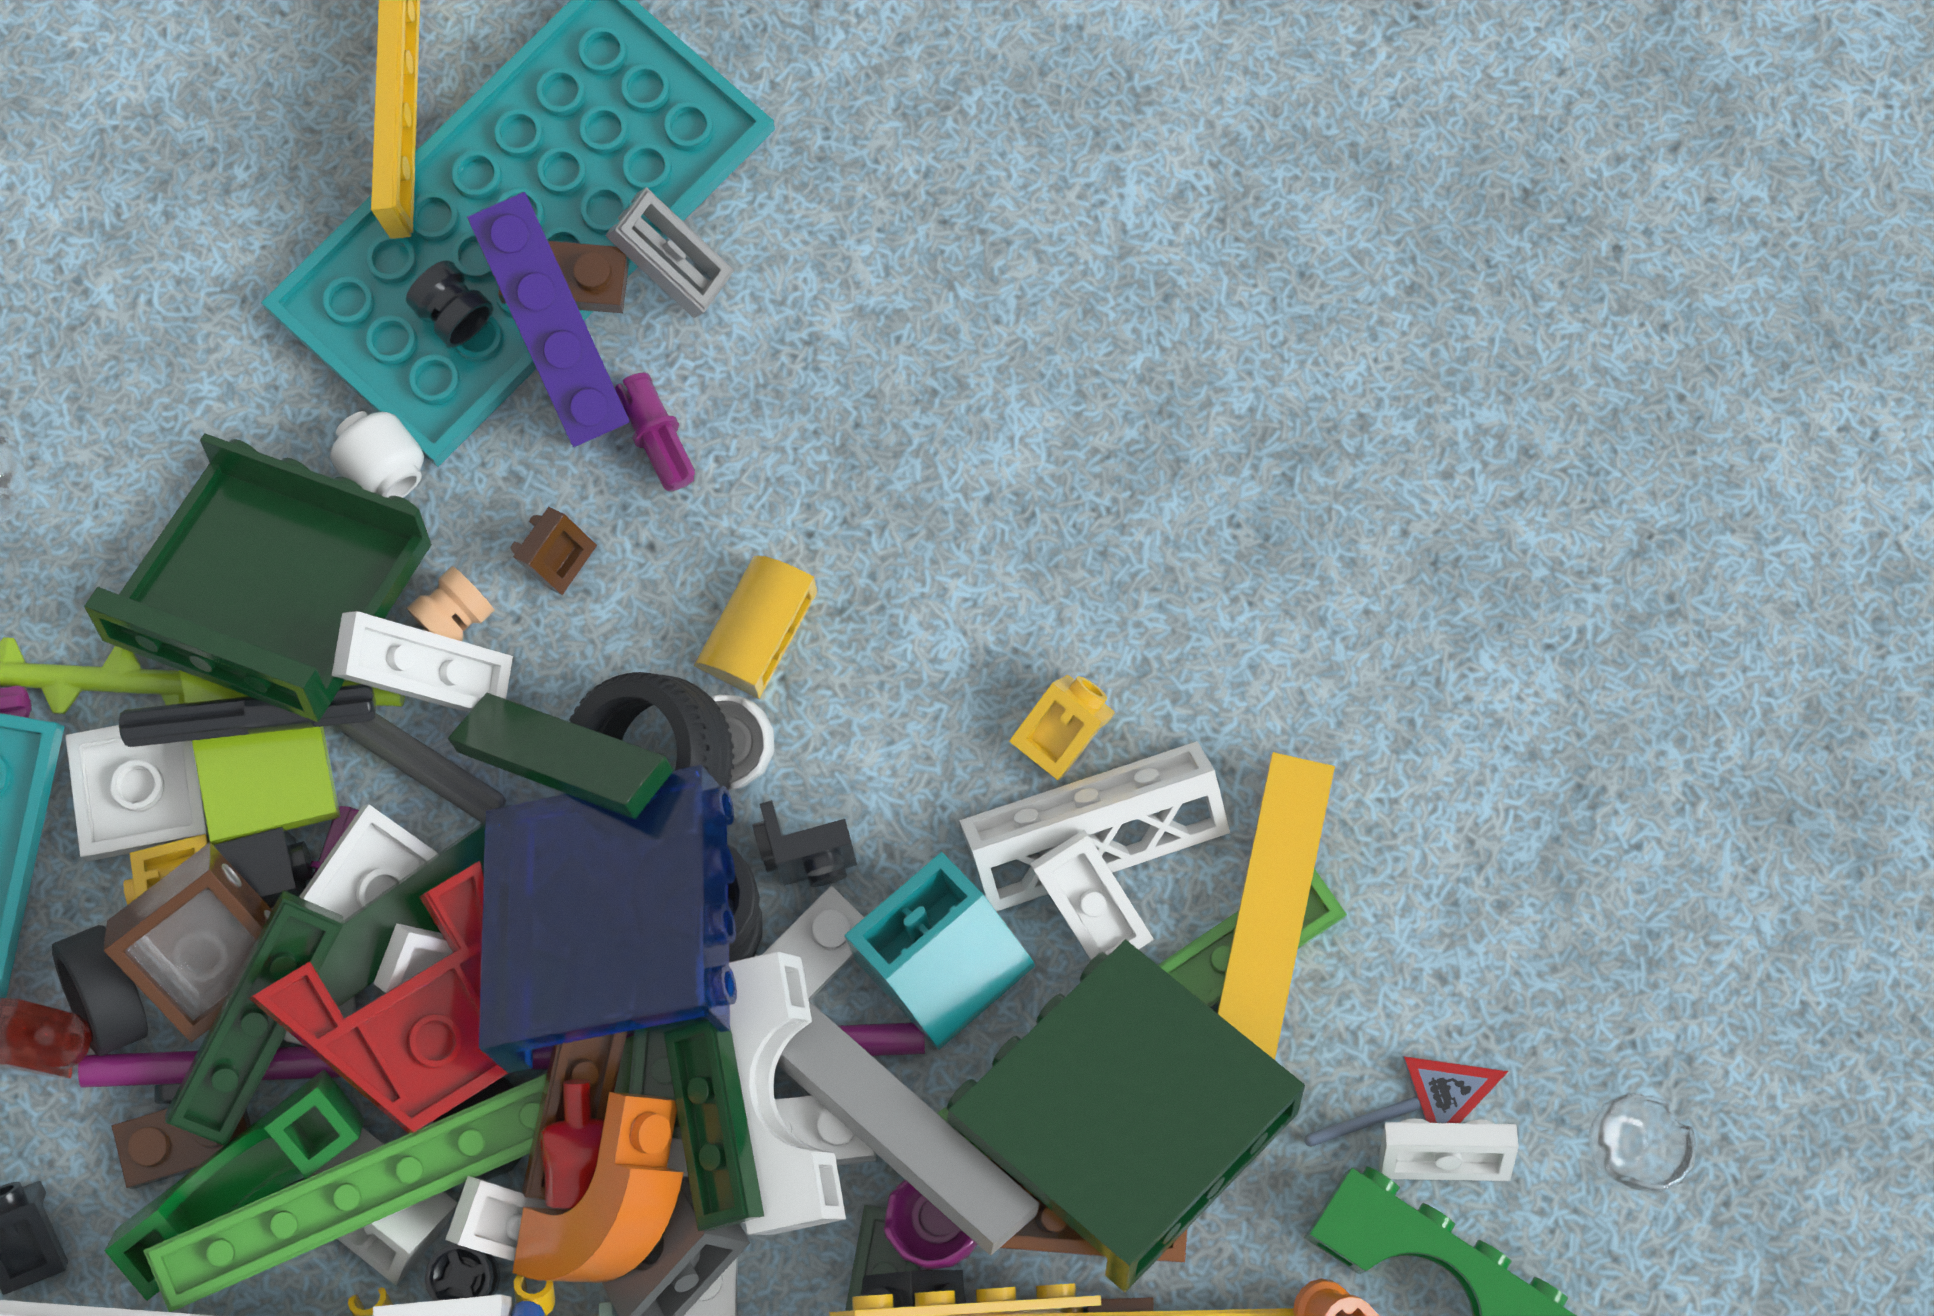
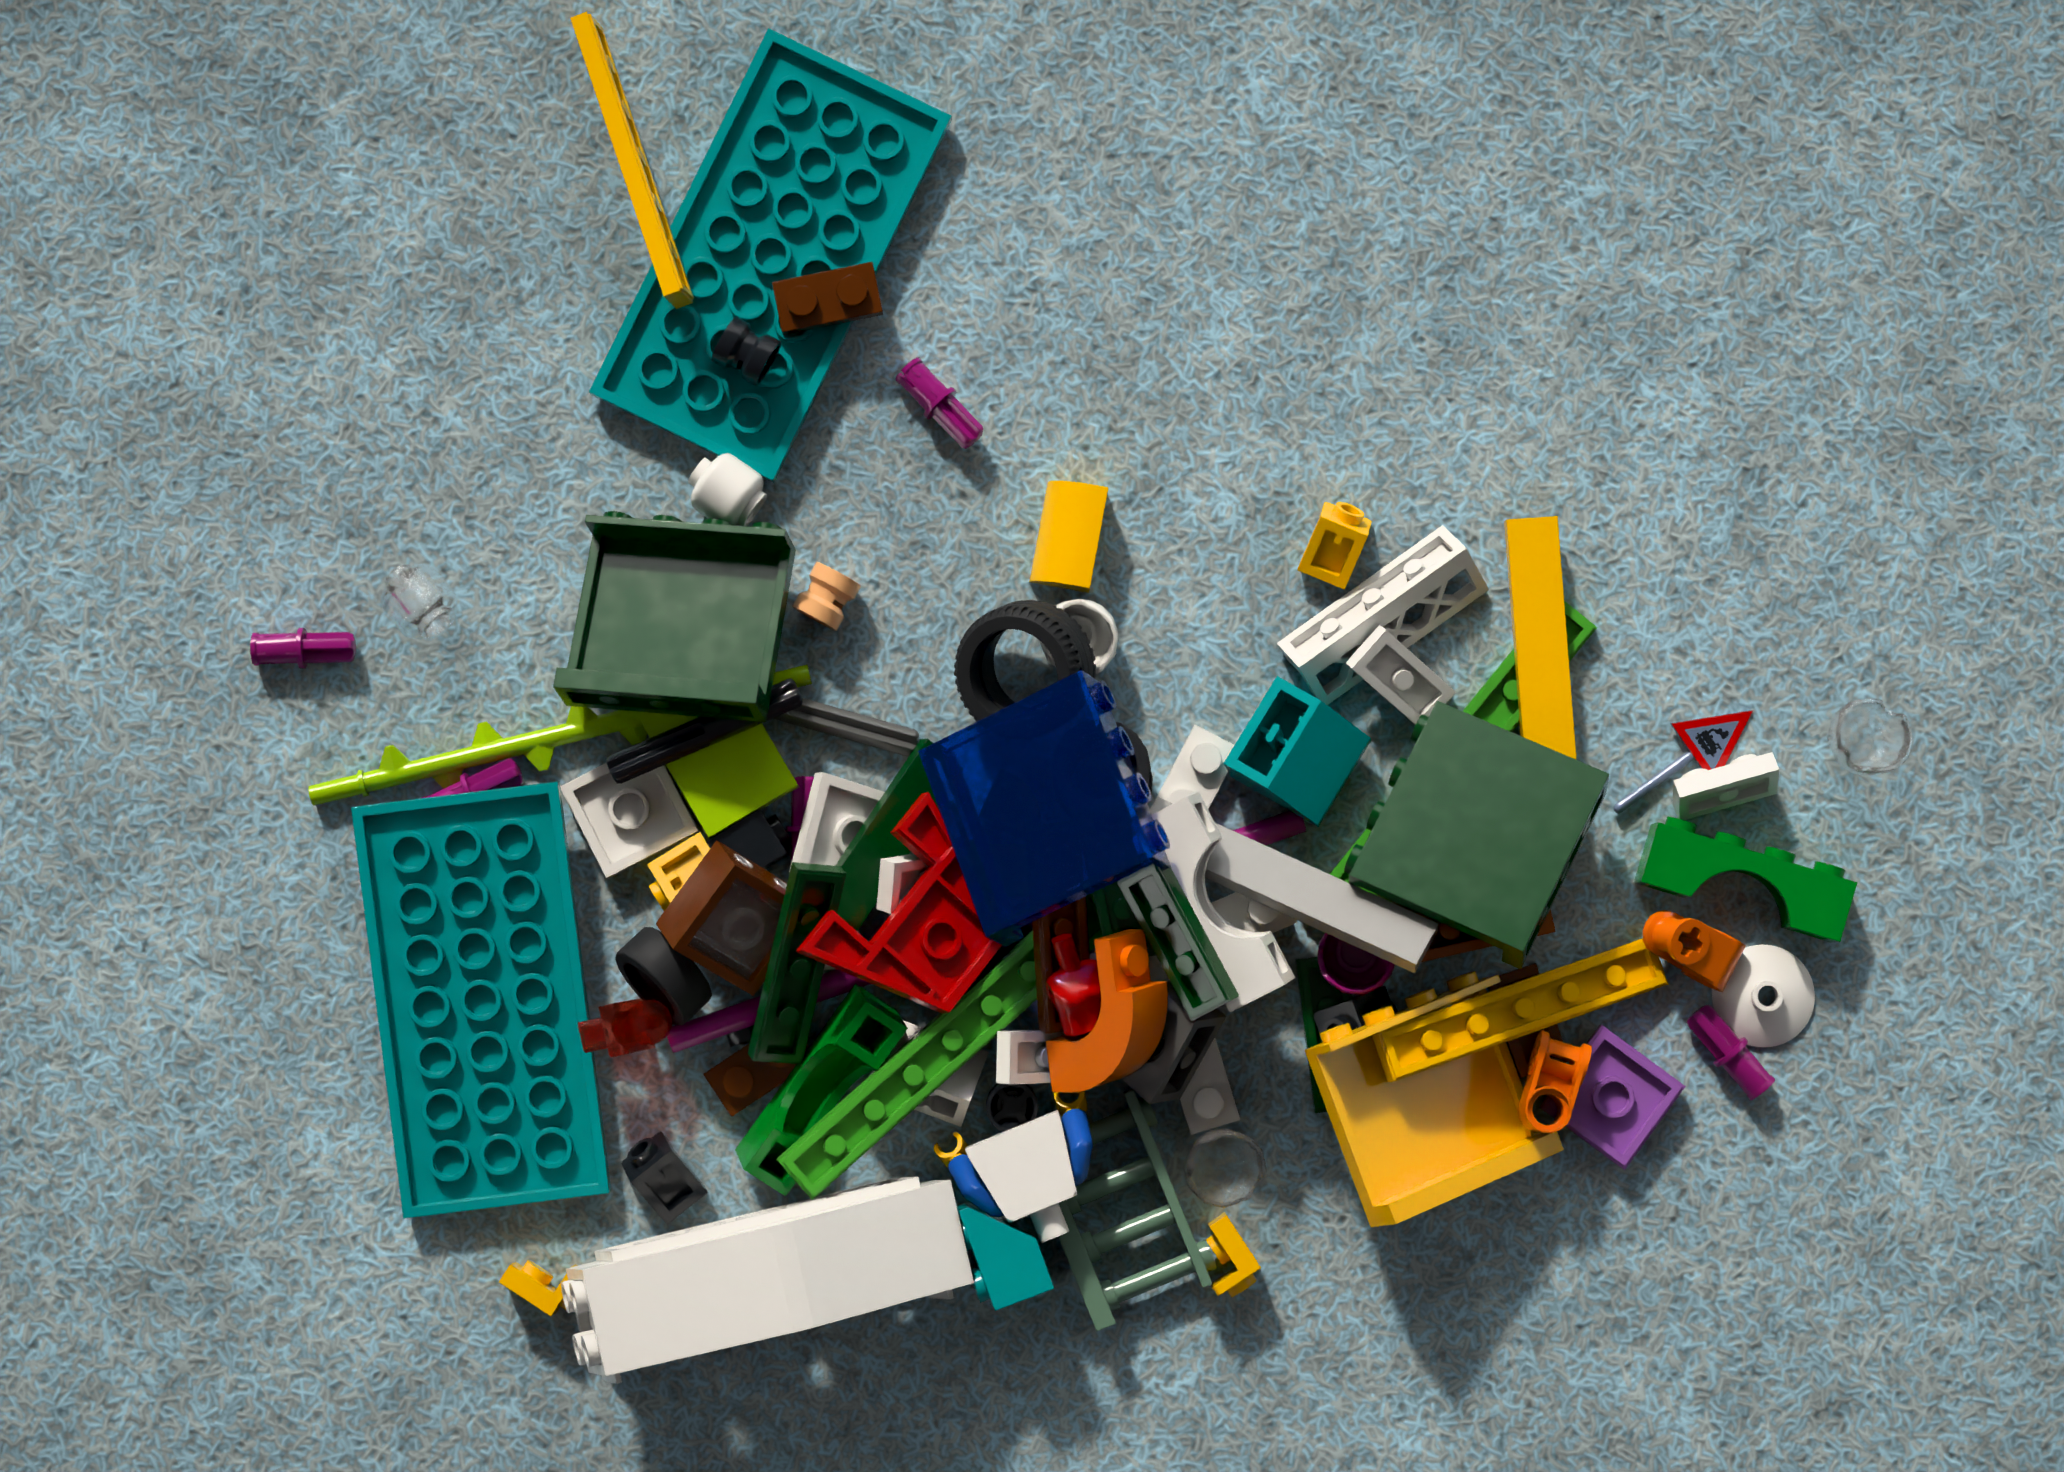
camera: 20 degrees left, 10 degrees up
(418, 662) = (827, 650): white plate -> none
(548, 319) = (832, 341): dark purple arch -> none
(554, 550) = (891, 524): reddish brown tile -> none
(561, 755) = (962, 691): dark green tile -> none
(663, 259) = (904, 262): light grey tile -> none
(808, 854) = (1179, 708): black bracket -> none

